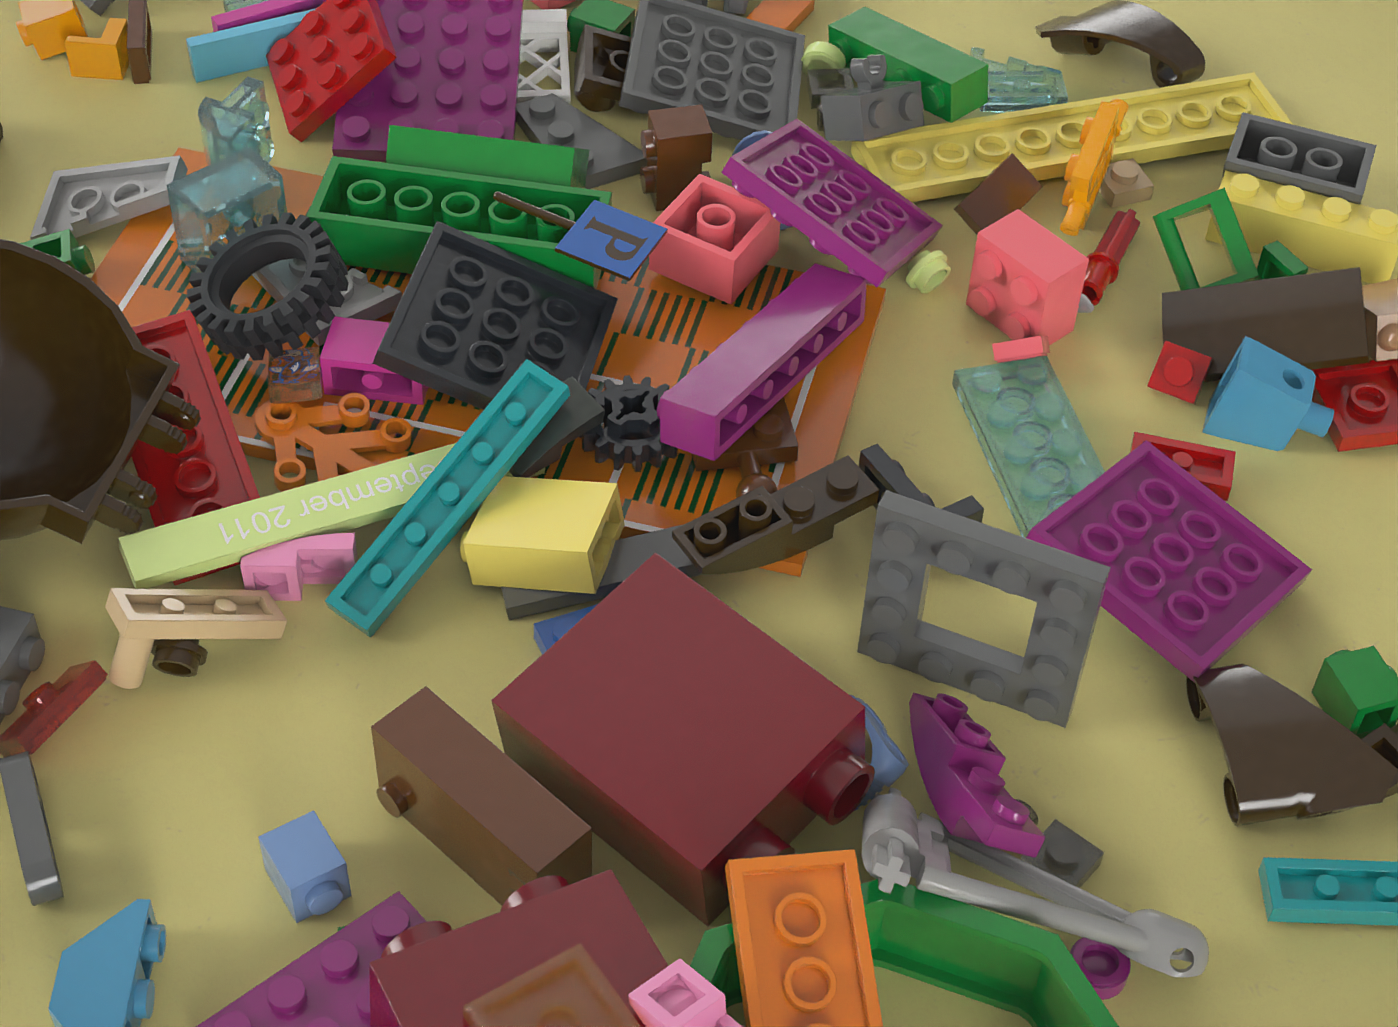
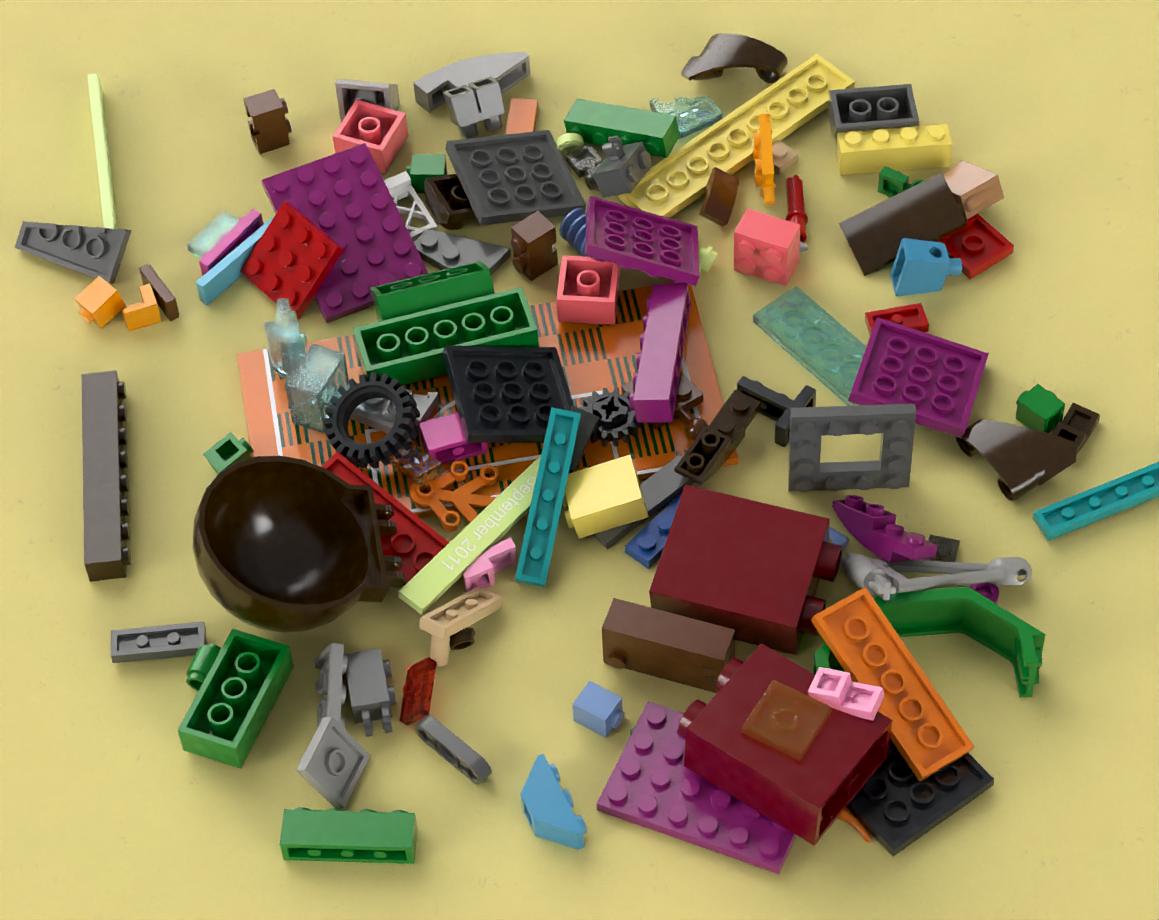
camera: 20 degrees left, 5 degrees up
(105, 195) = (223, 402): light grey wing -> none
(601, 236) = (535, 317): blue piece -> none
(1021, 349) = (782, 288): coral tile -> none
(1180, 372) = (870, 267): red plate -> none
(1228, 230) = (859, 174): green tile -> none

